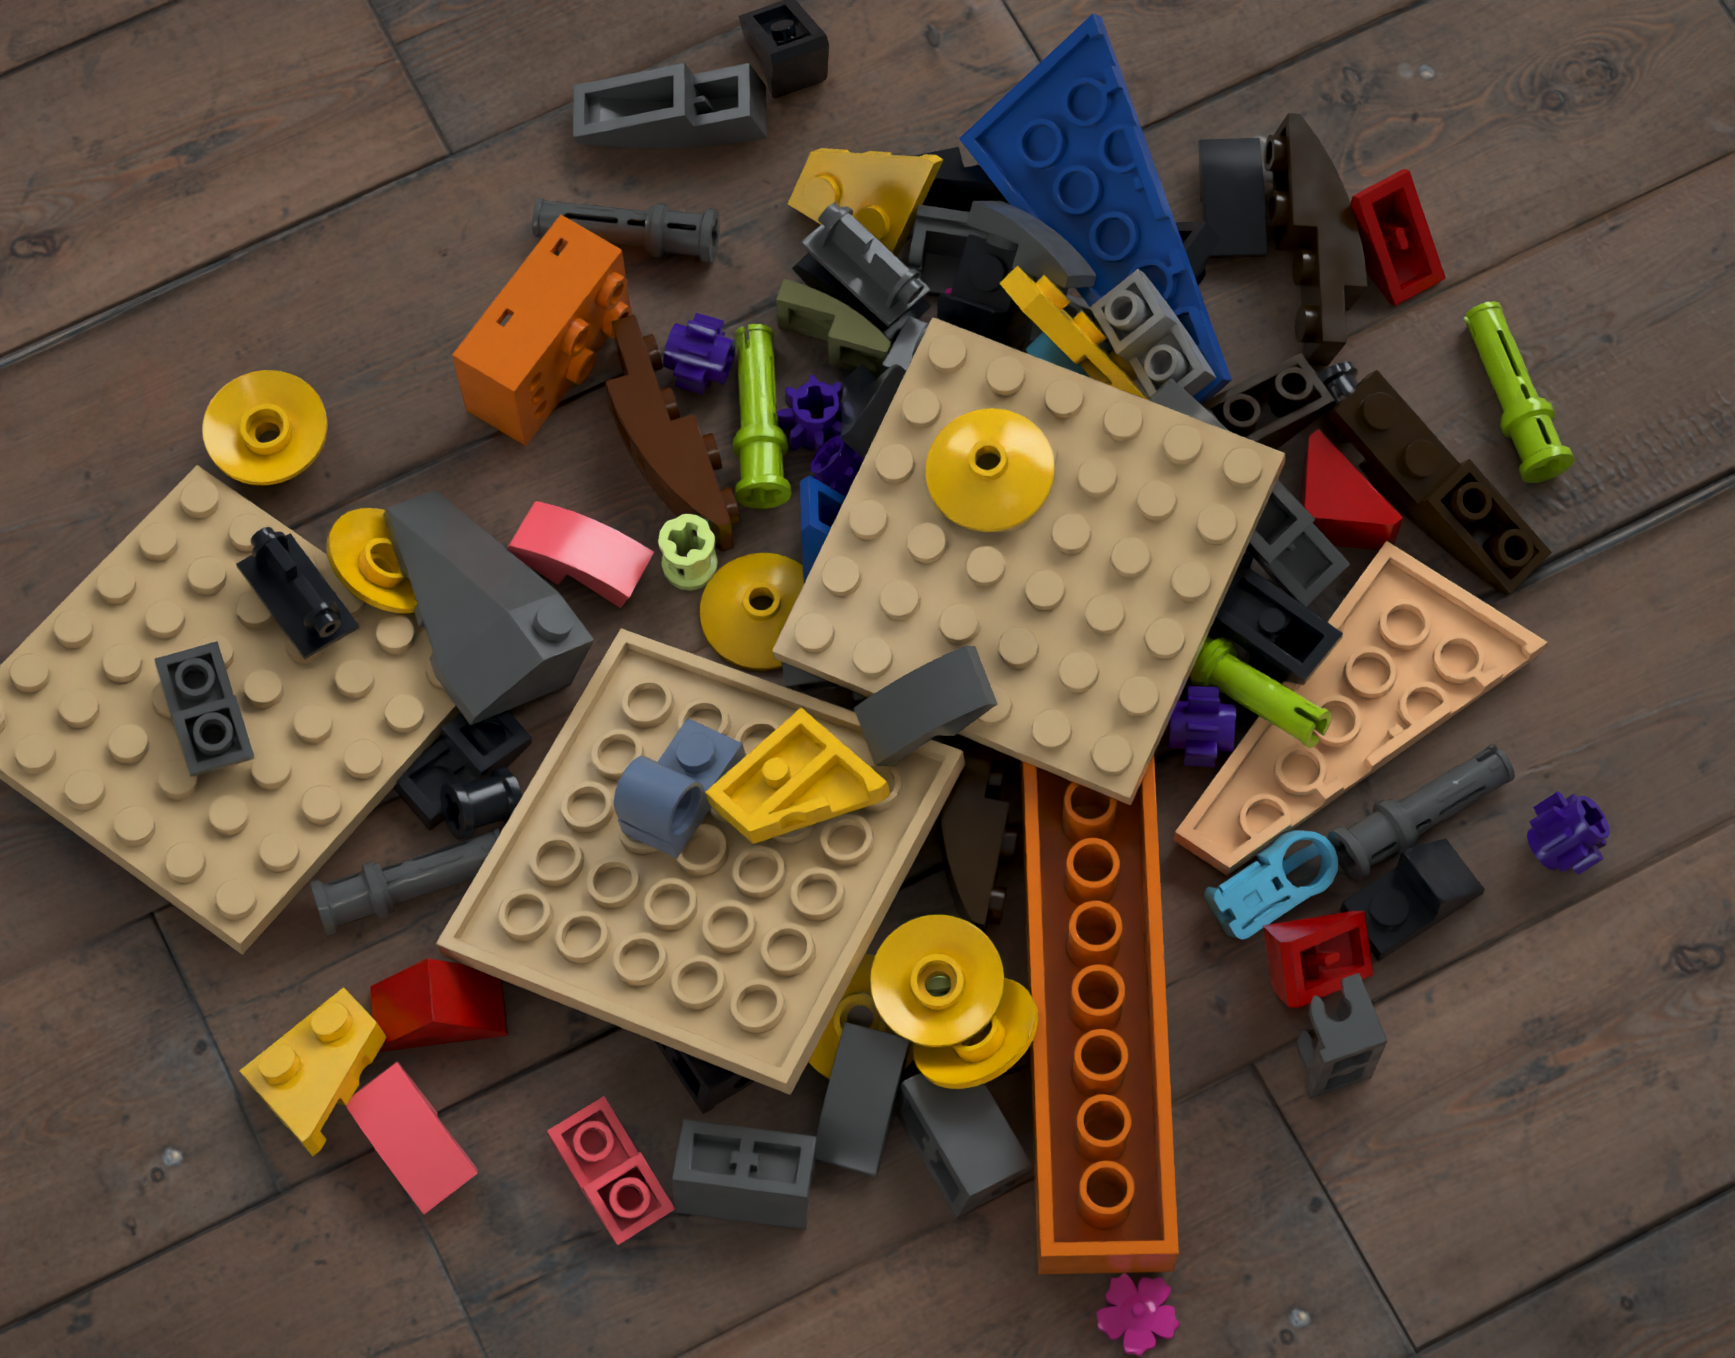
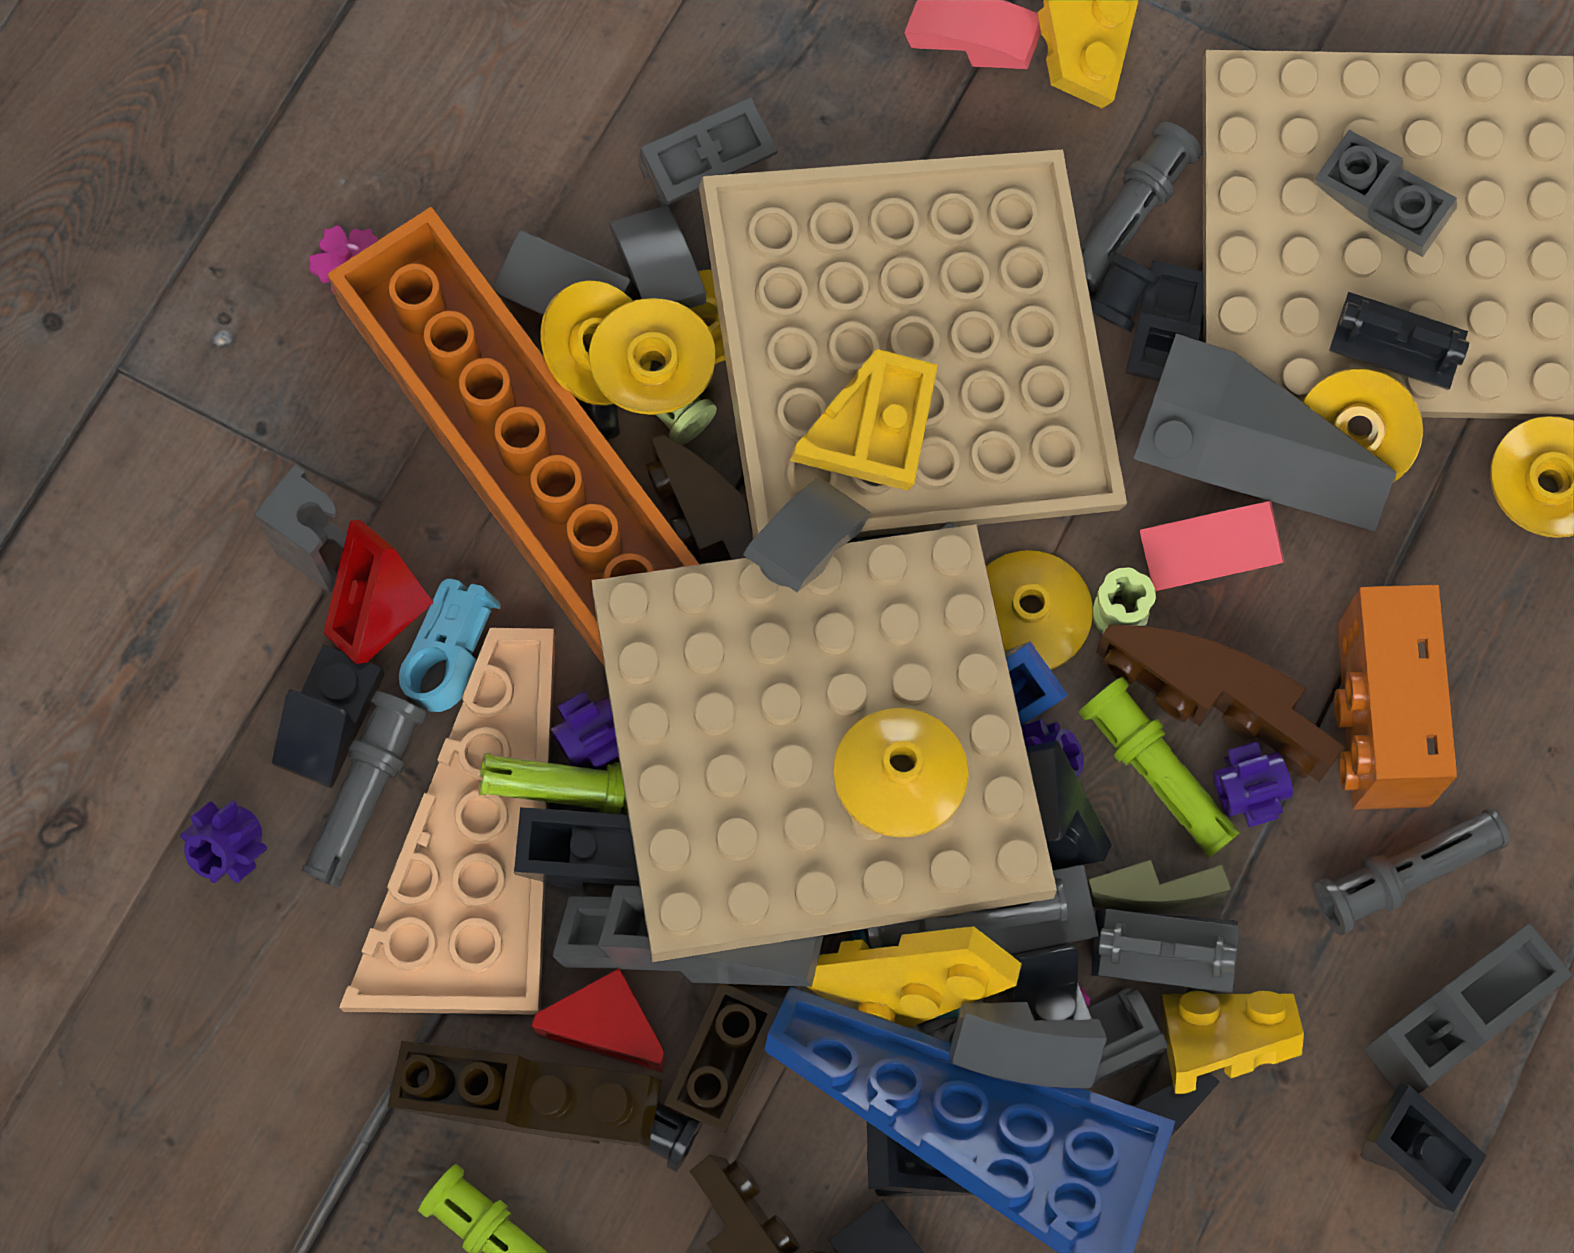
camera: 145 degrees right, 5 degrees up
(438, 1005) = (1035, 120): red slope -> none
(610, 1170) = (808, 107): coral slope -> none
(667, 798) = (970, 350): sand blue plate -> none
(807, 400) = (1108, 781): dark purple gear -> none
(1151, 336) = (869, 1034): light grey slope -> none

